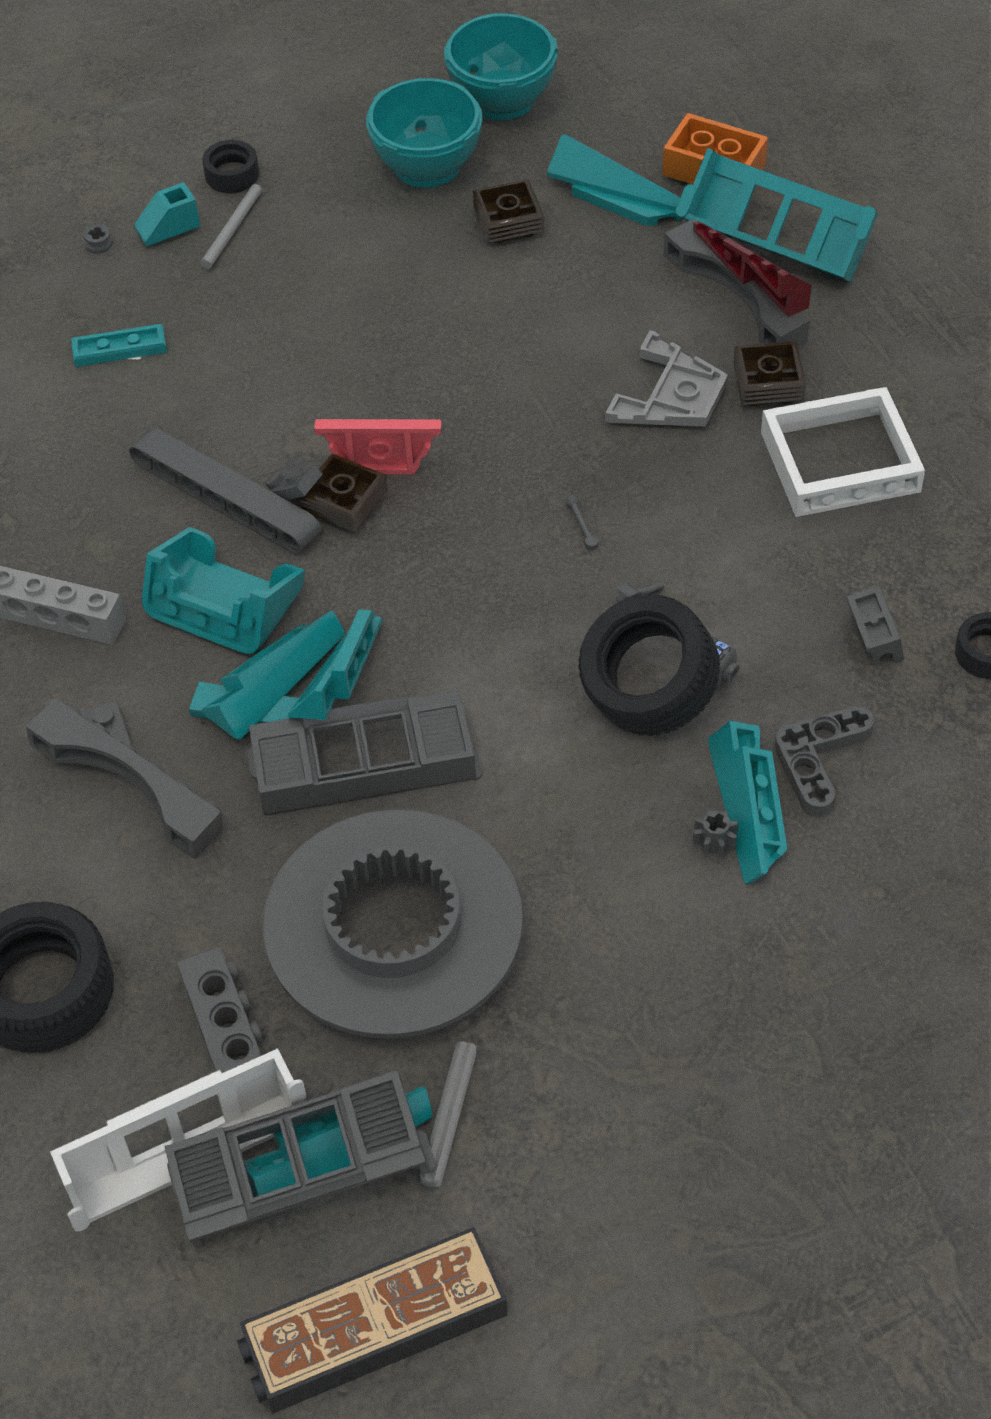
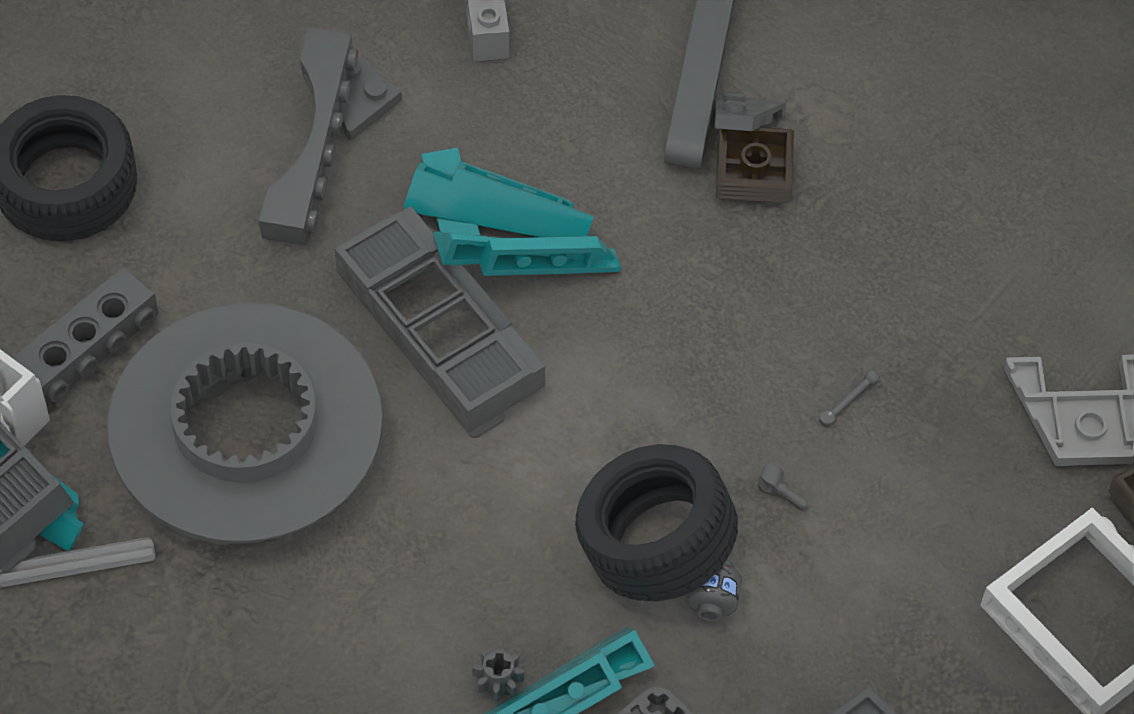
camera: 60 degrees right, 5 degrees up
(212, 599) = (570, 111): teal windscreen -> none
(380, 444) = (822, 162): coral wing -> none

